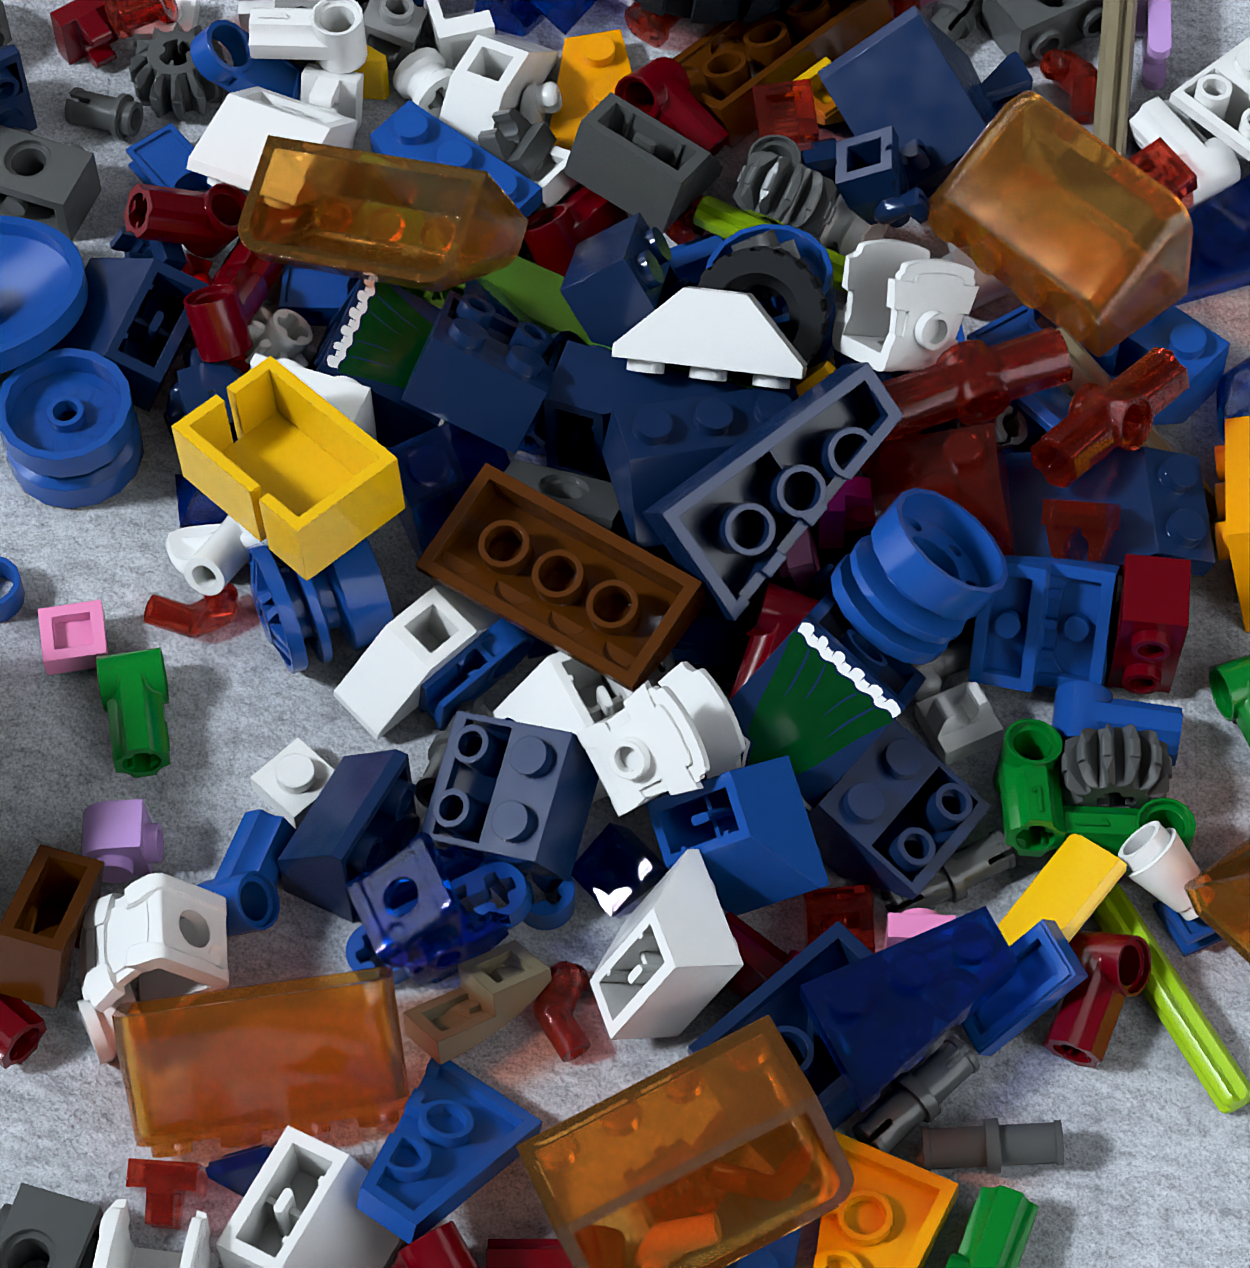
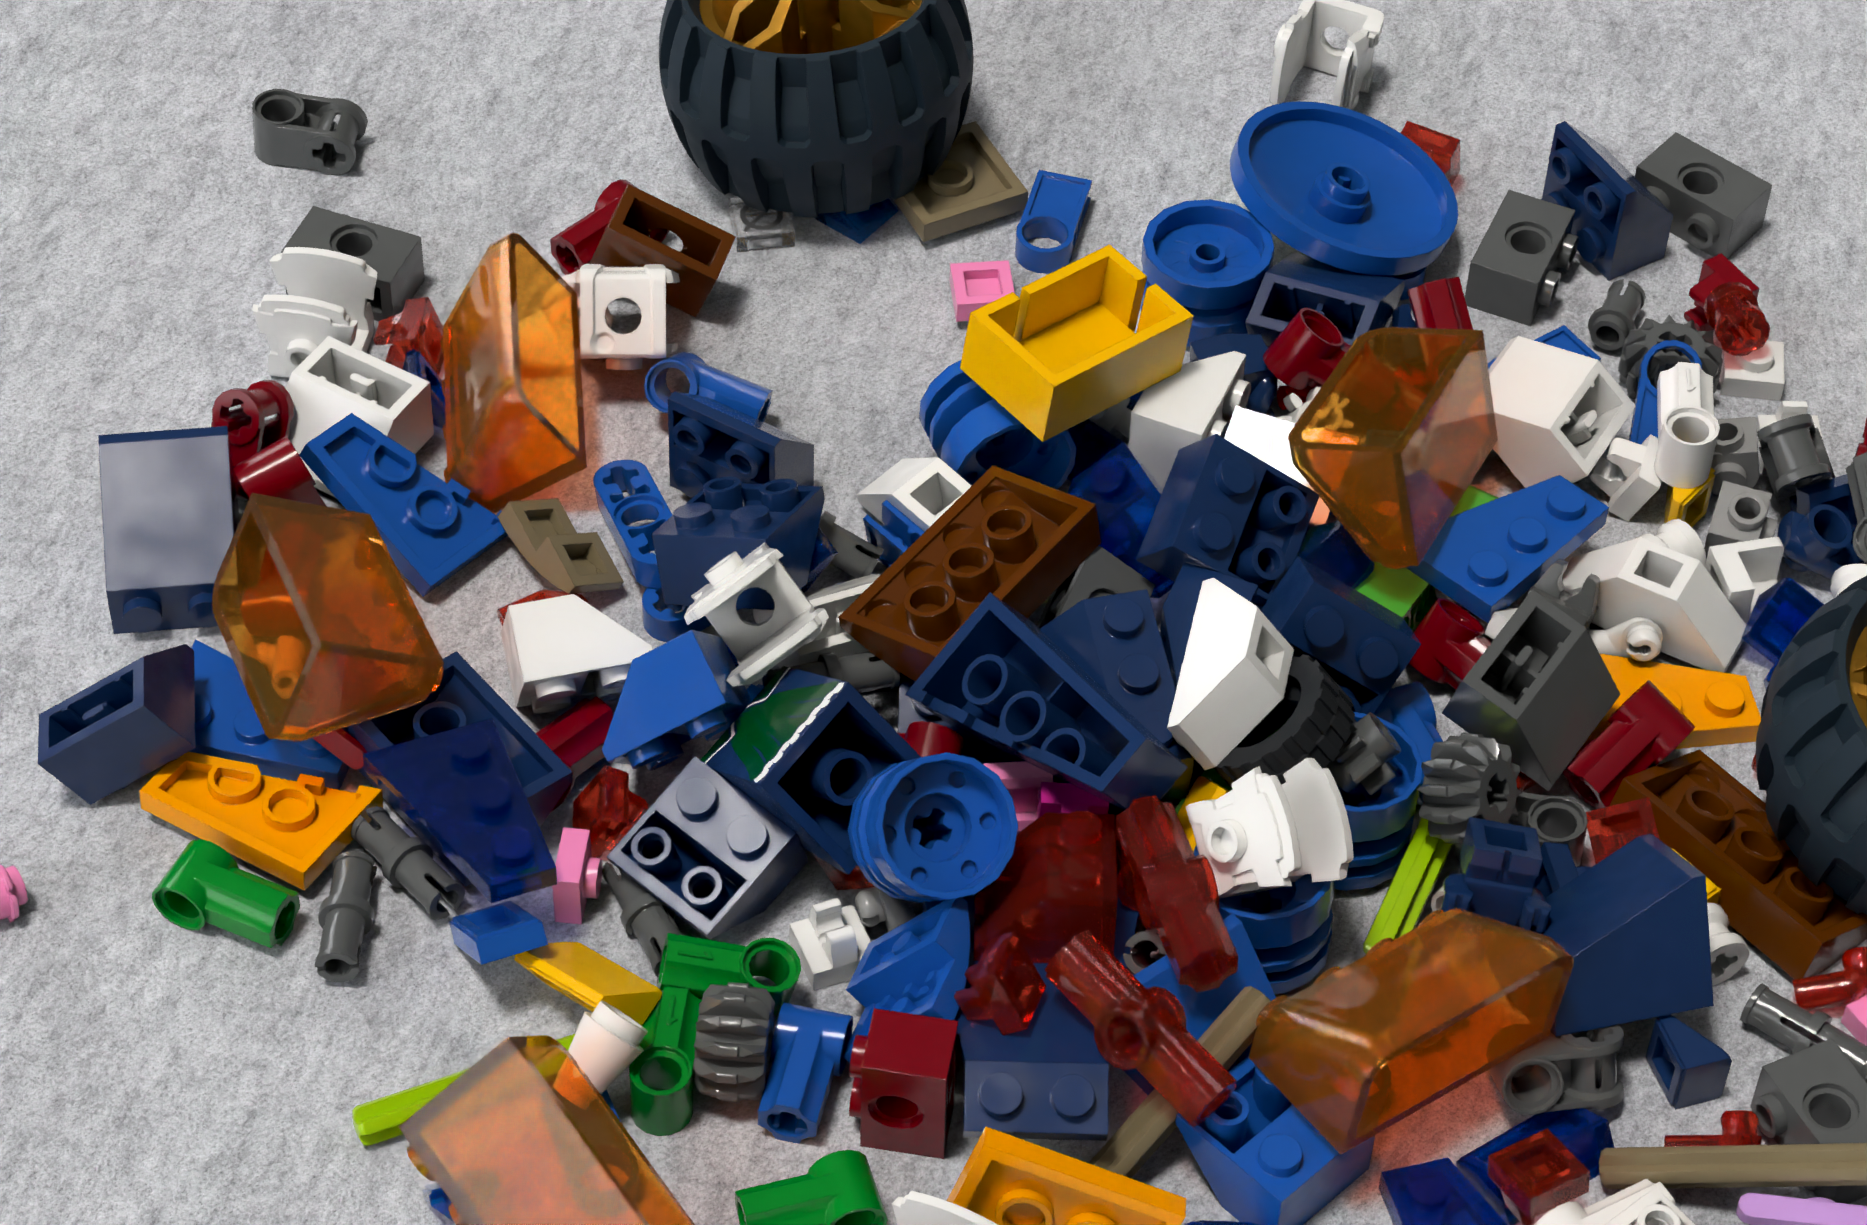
camera: 90 degrees right, 10 degrees down
(122, 838) = (759, 318): lavender plate -> none
(134, 697) = (918, 327): green piece -> none
(292, 781) = (831, 439): white plate -> none
(439, 928) = (623, 454): clear blue piece -> none
(1087, 1015) = (487, 1003): dark red piece -> none

